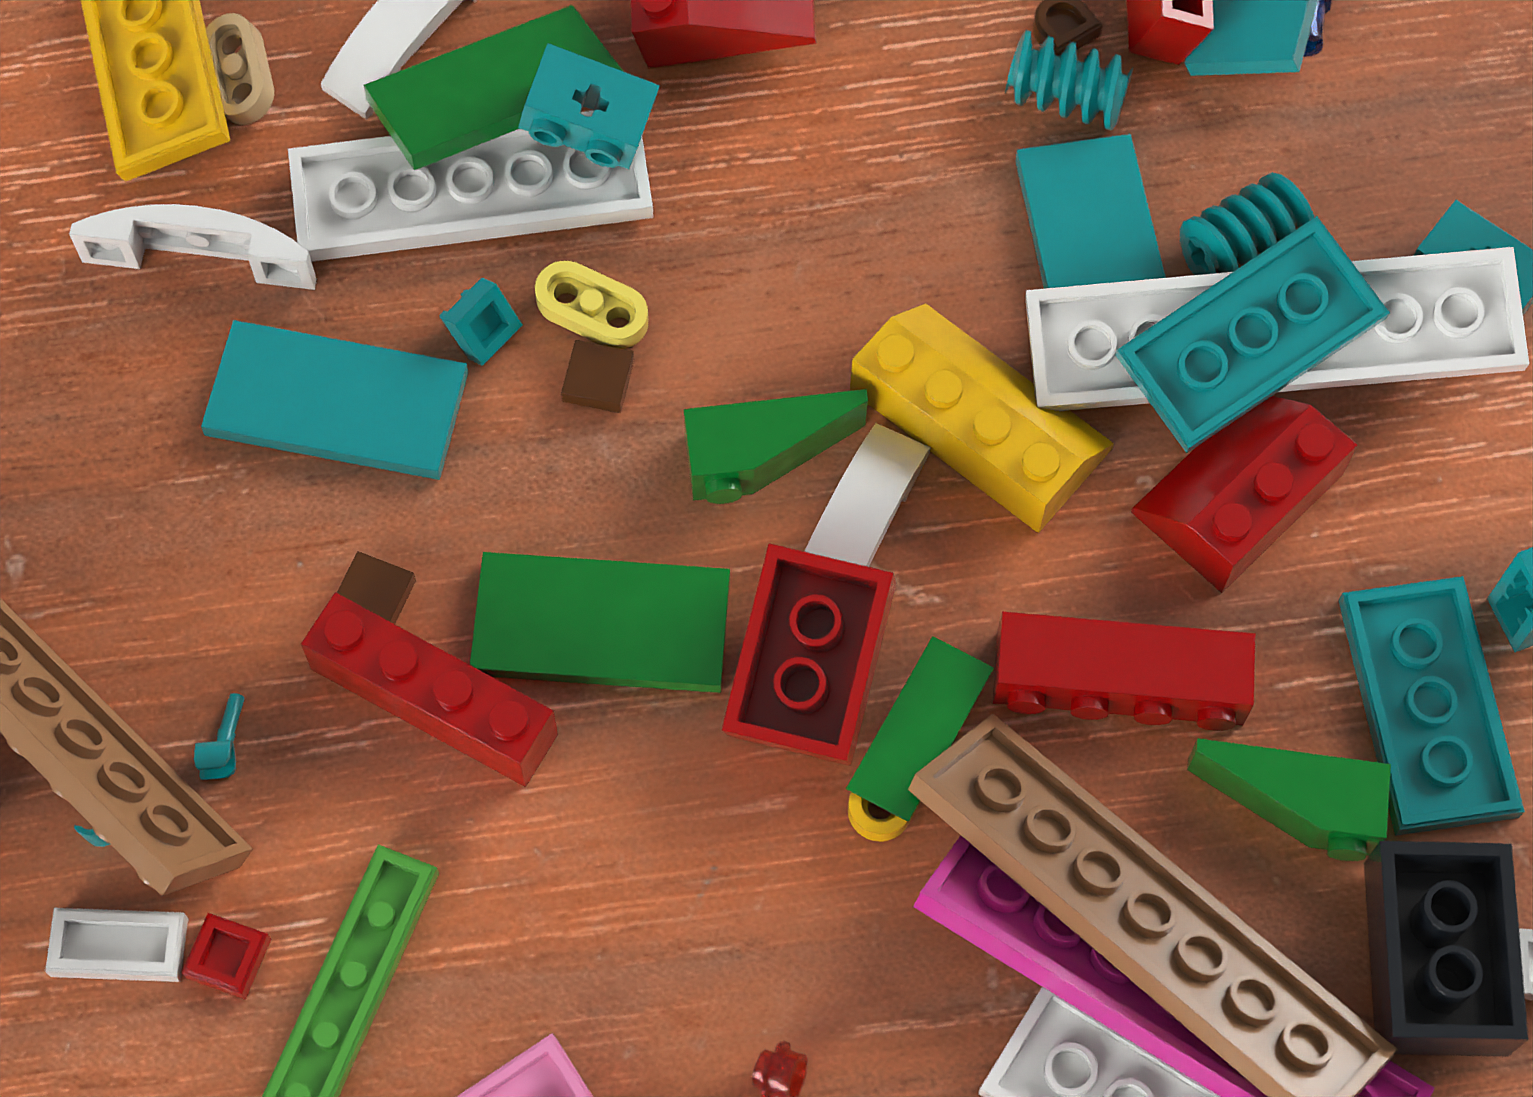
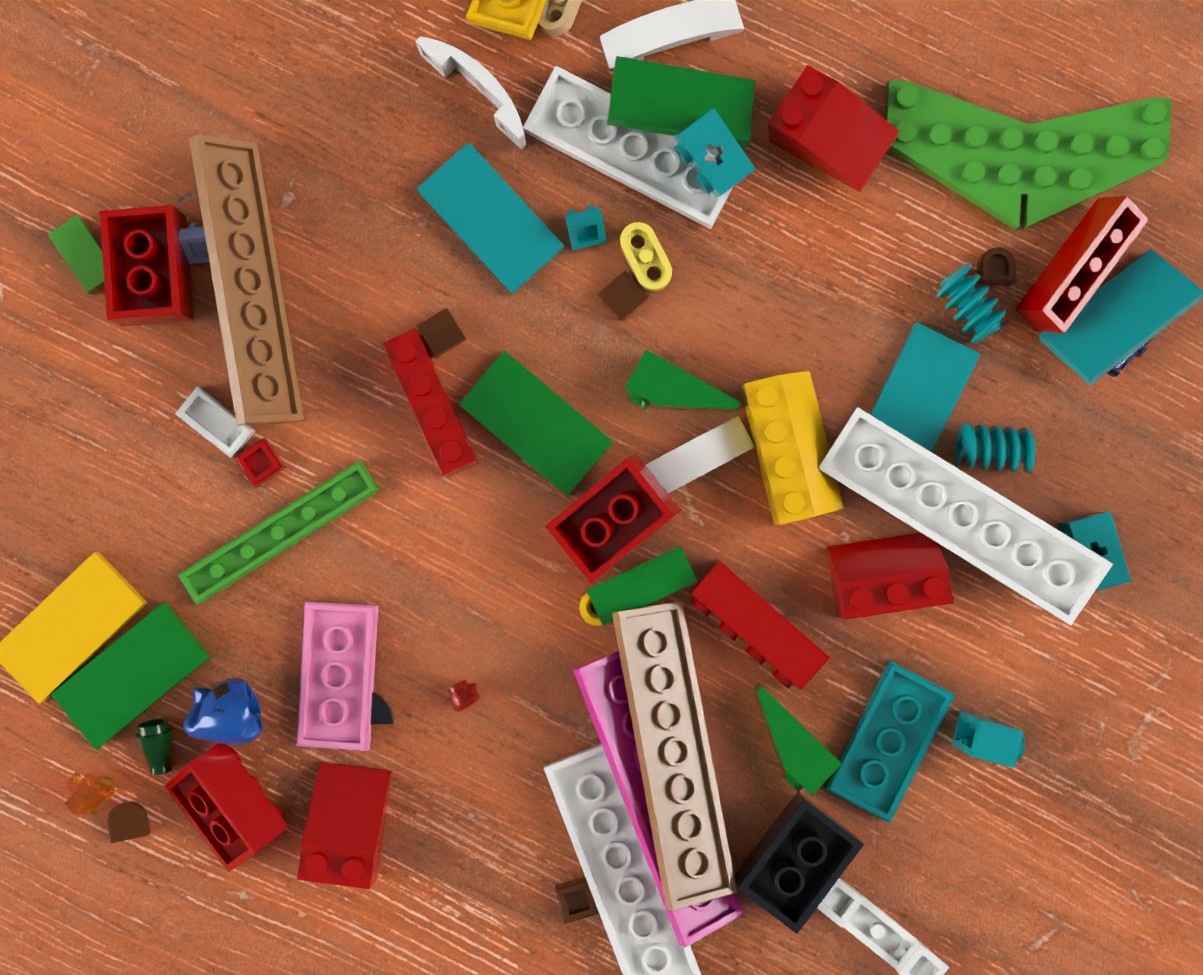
camera: 35 degrees right, 20 degrees up
(218, 757) = (317, 365): teal hand -> none
(1252, 334) = (949, 512): teal tile -> none

